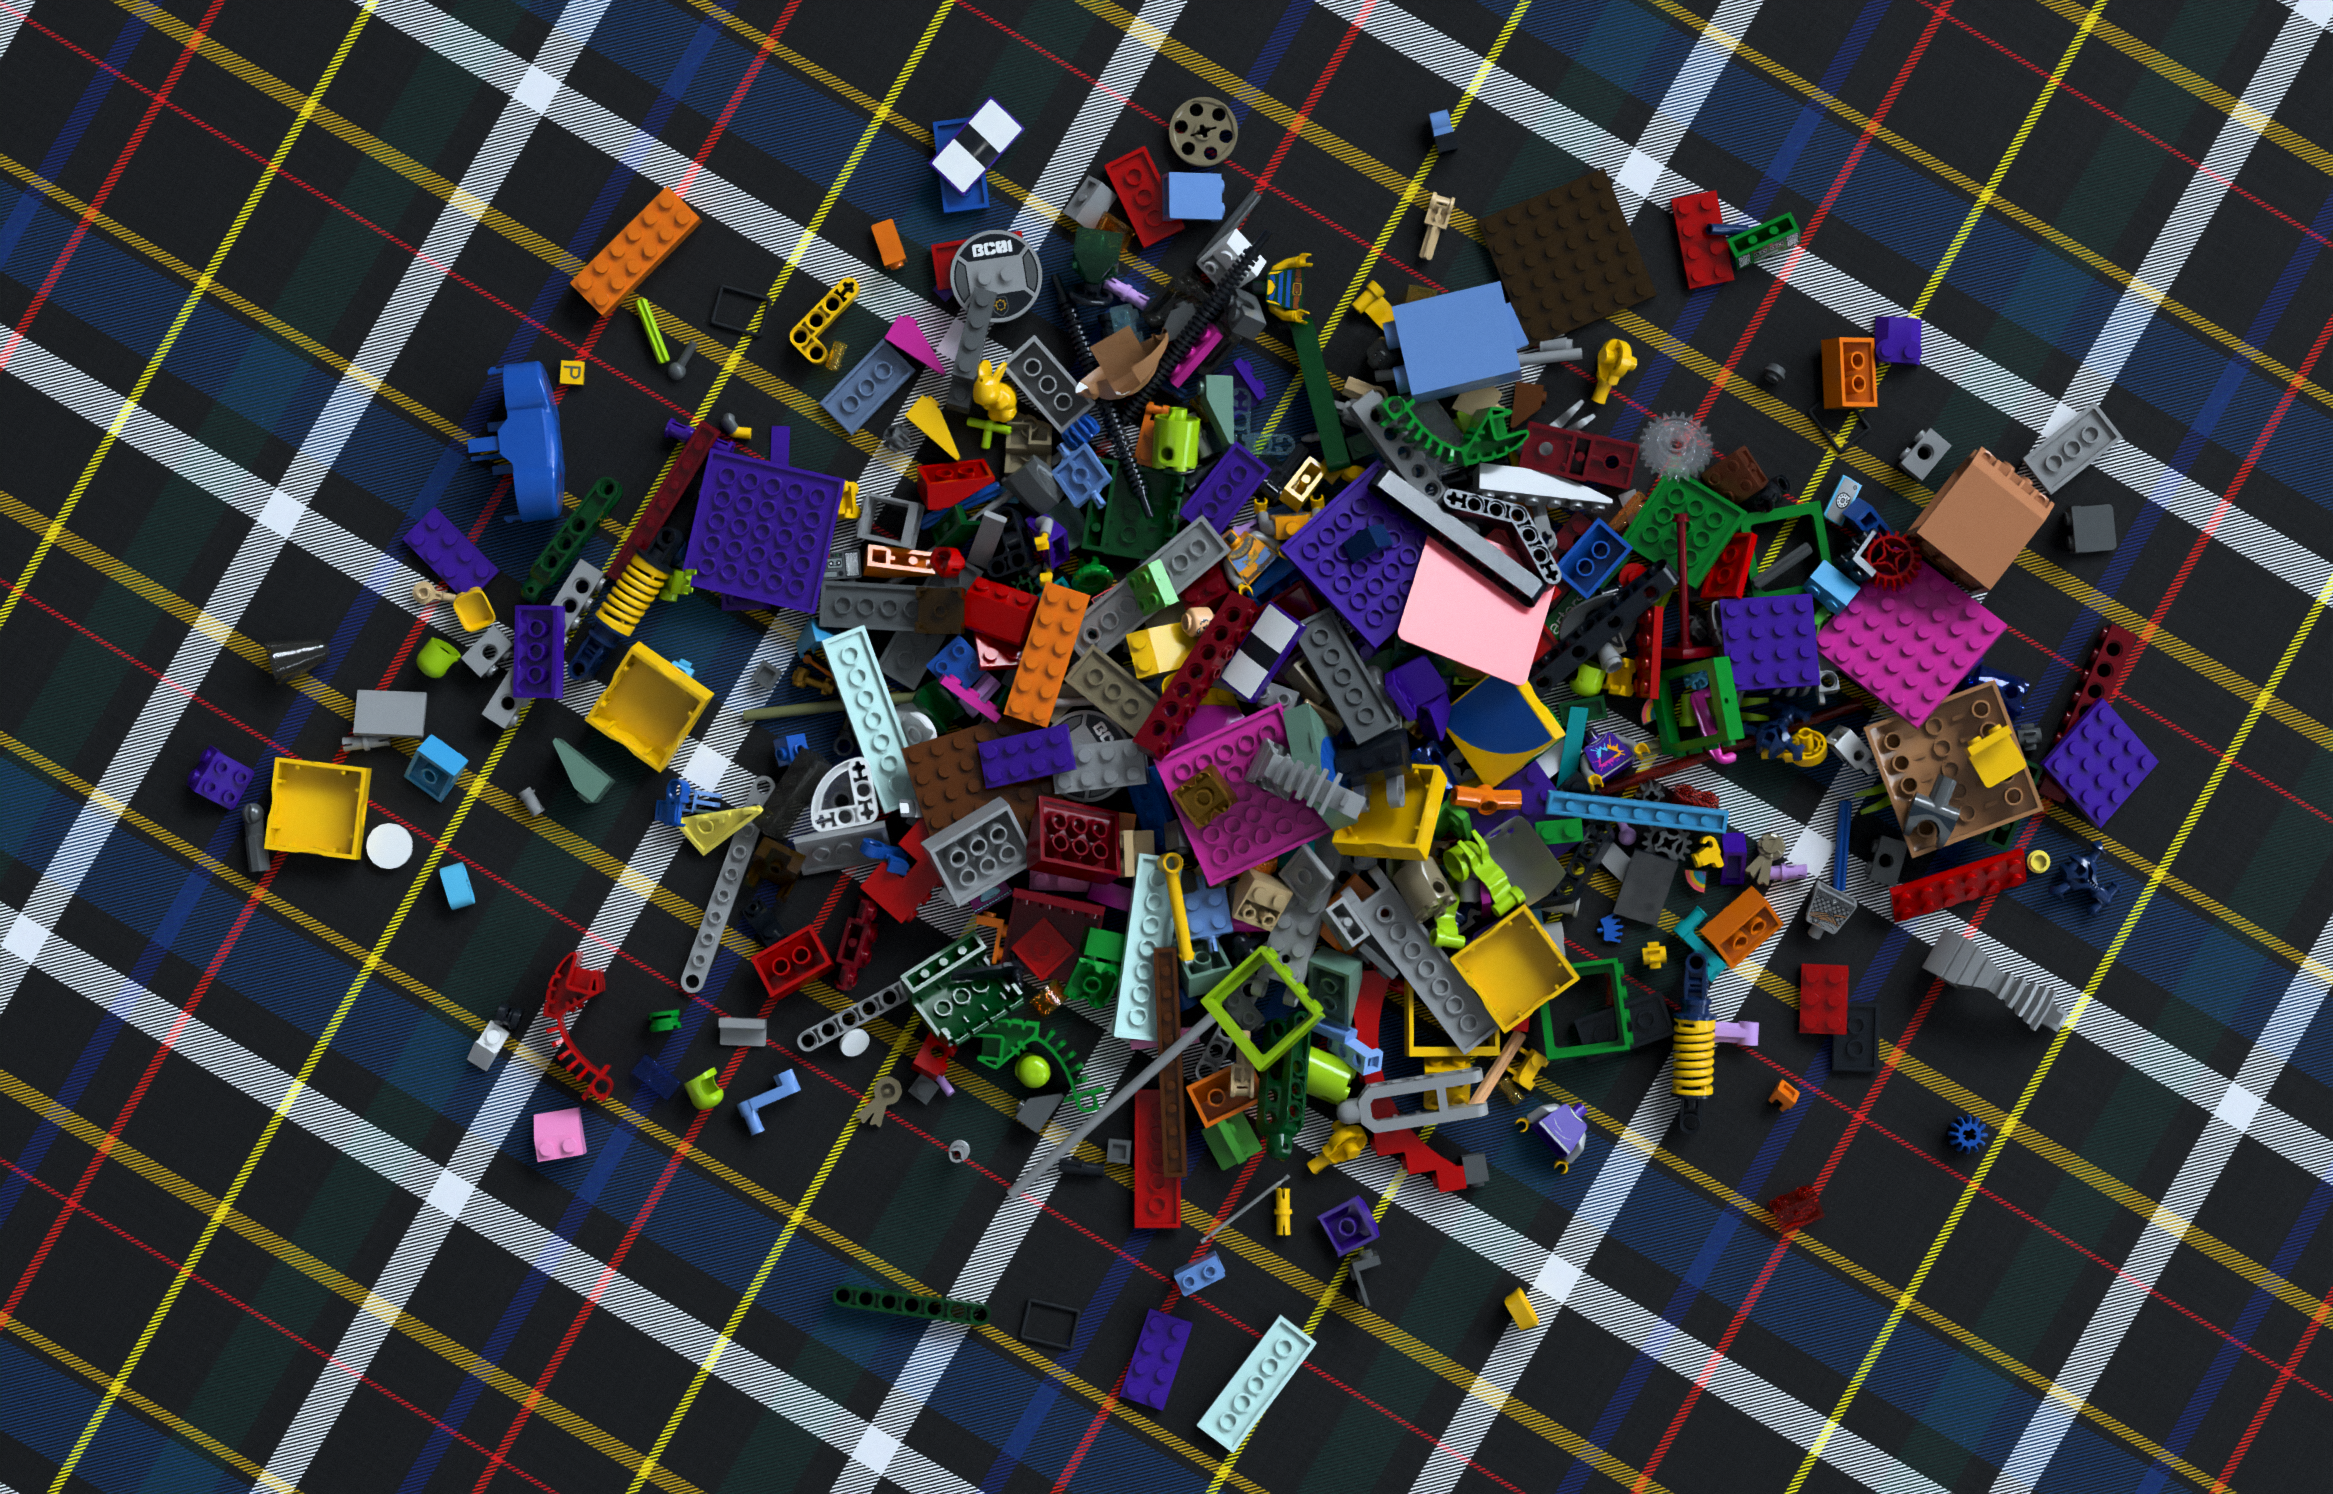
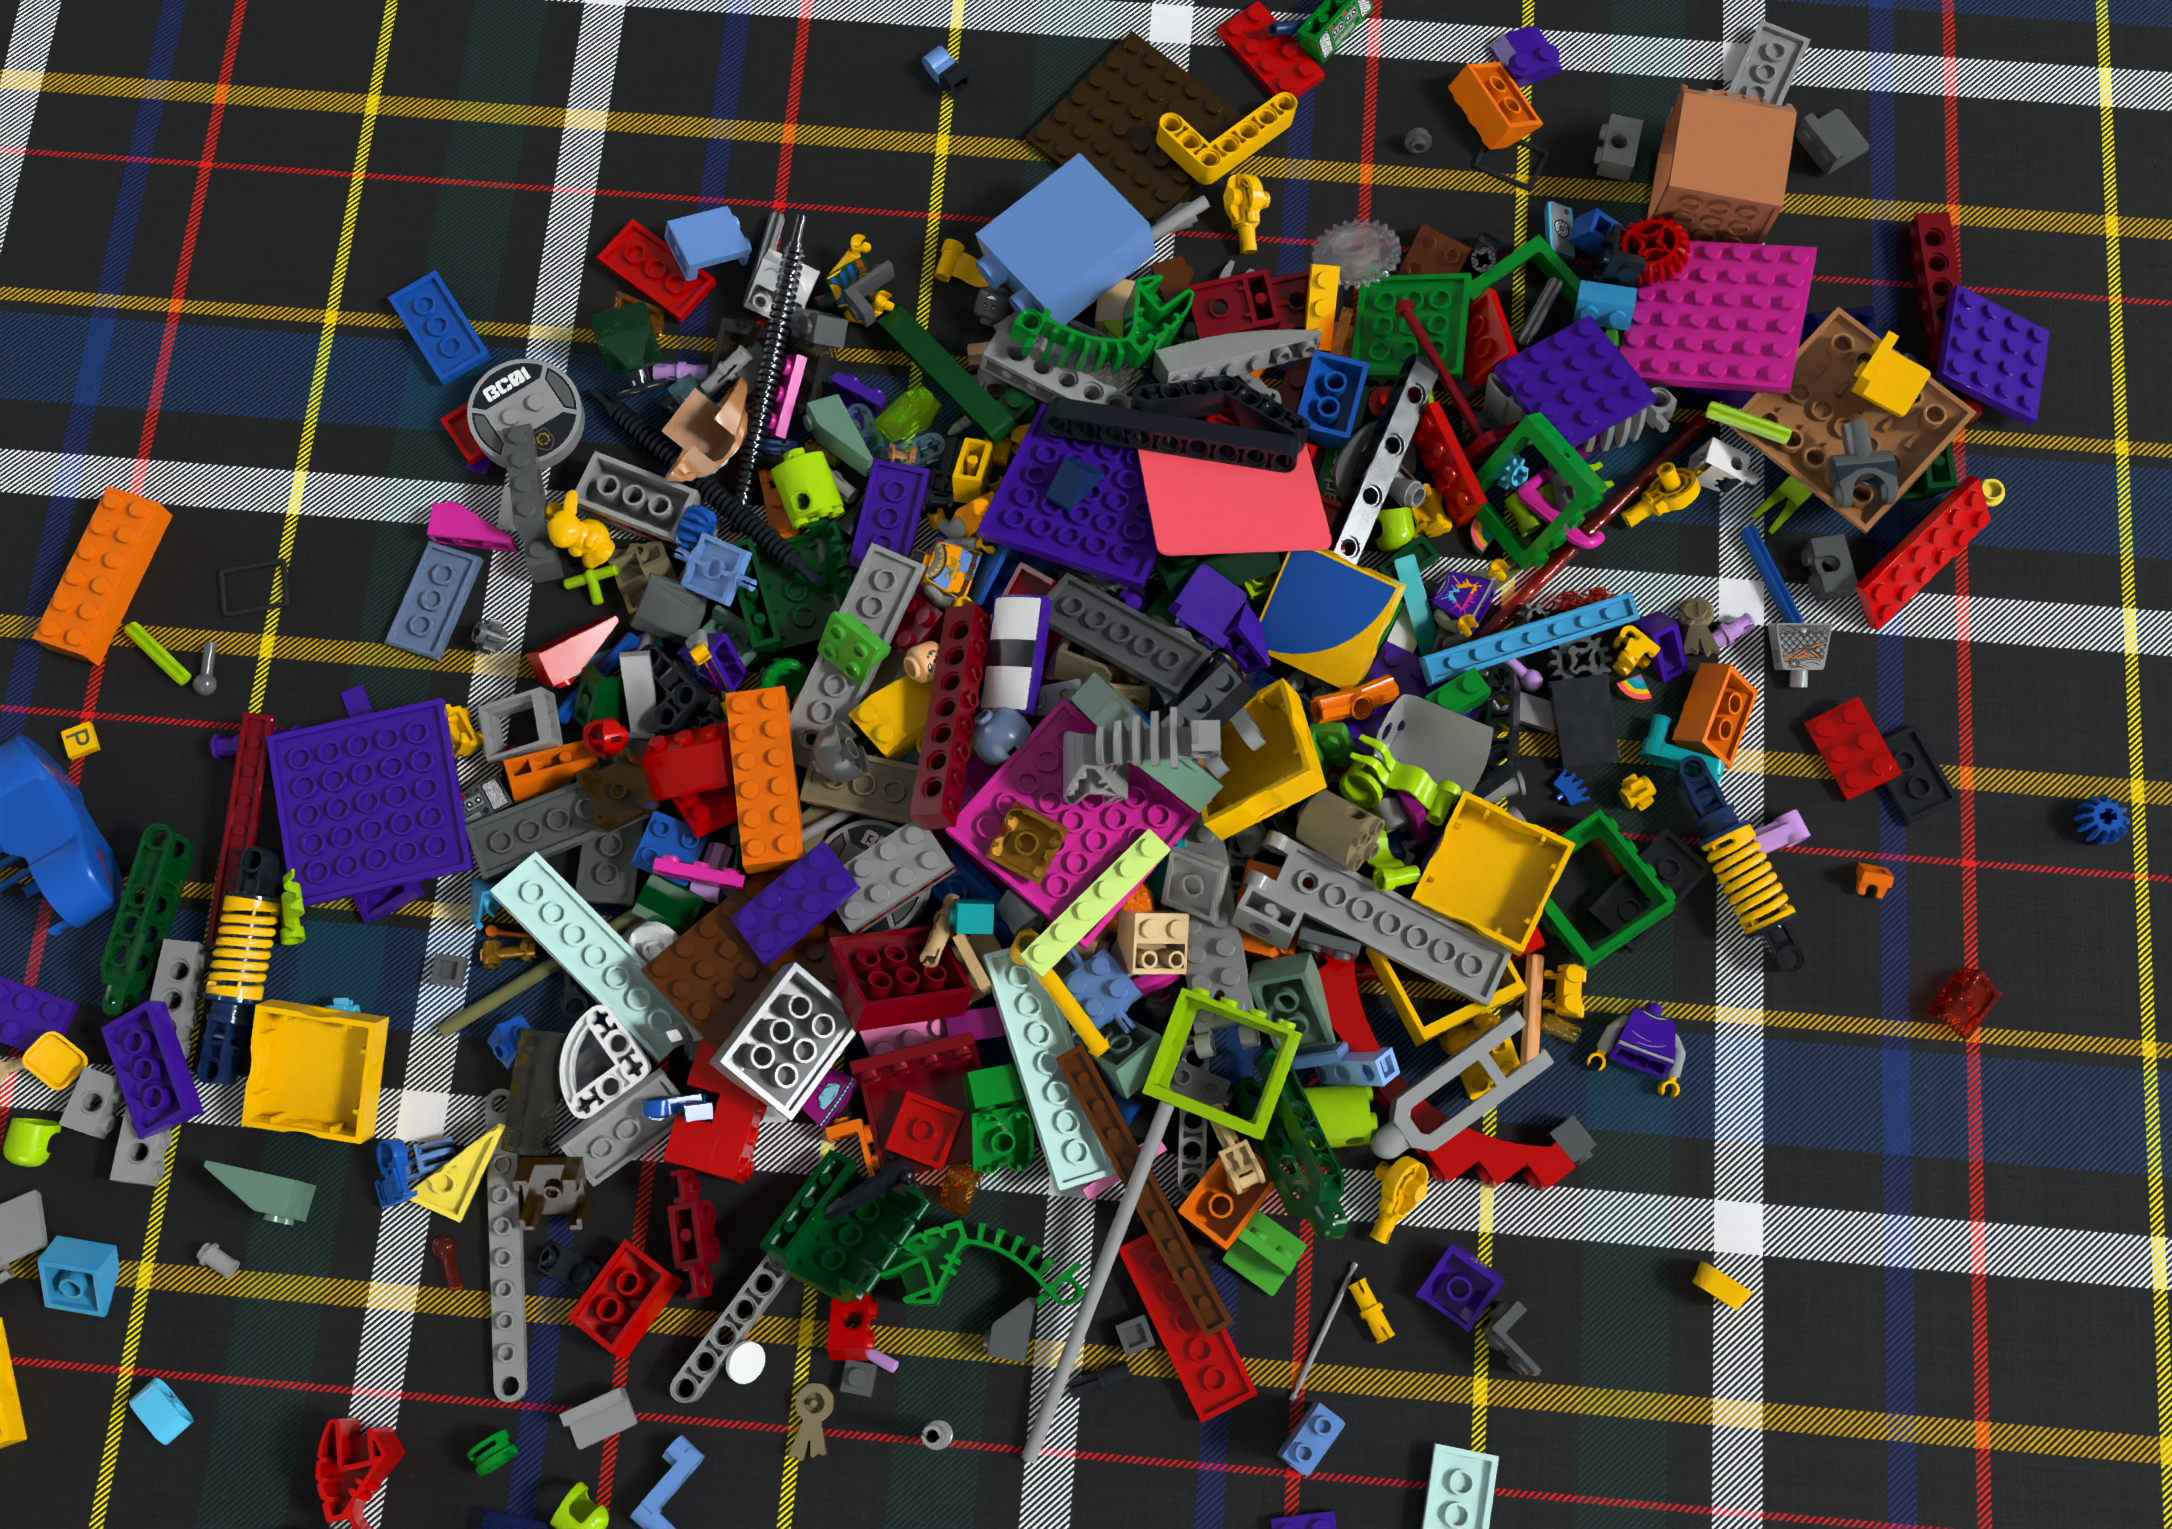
camera: 30 degrees left, 15 degrees down
(389, 846) = (57, 1403): white tile -> none
(685, 867) = (444, 1248): none -> clear red bar
(732, 429) = (295, 715): arm -> none
(828, 318) = (365, 512): yellow beam -> none
(835, 356) = (382, 588): clear yellow pin -> none
(889, 244) = (394, 441): orange bracket -> none
(930, 421) = (517, 600): yellow slope -> none
(976, 146) = (444, 296): white slope -> none
(1032, 1070) = (982, 1286): lime helmet -> none
(1090, 203) = (597, 297): light grey panel -> none
(1105, 665) = (838, 755): none -> dark grey cylinder
(1123, 814) = (939, 933): none -> tan pin
(1144, 823) = (972, 916): none -> teal brick
(1158, 317) = (726, 371): none -> light grey pin
(1194, 123) = (689, 170): dark tan wedge -> none
(1223, 706) = (998, 733): none -> sand blue cylinder
(1231, 859) = (1094, 903): none -> yellowish green plate
(1251, 441) = (894, 454): none -> medium nougat piece
(1277, 415) = (908, 414): none -> clear neon green slope
(1280, 314) = (859, 289): none -> dark grey bracket
(1436, 219) = (983, 156): tan connector -> none
(1626, 477) = (1322, 302): none -> yellow plate
(1630, 308) = (1212, 160): none -> yellow beam
(1775, 734) = (1633, 486): dark blue piece -> none
(1875, 736) = (1748, 422): none -> lime axle
(1969, 968) = (1989, 627): light grey piece -> none
(2082, 875) = (2047, 480): dark blue piece -> none

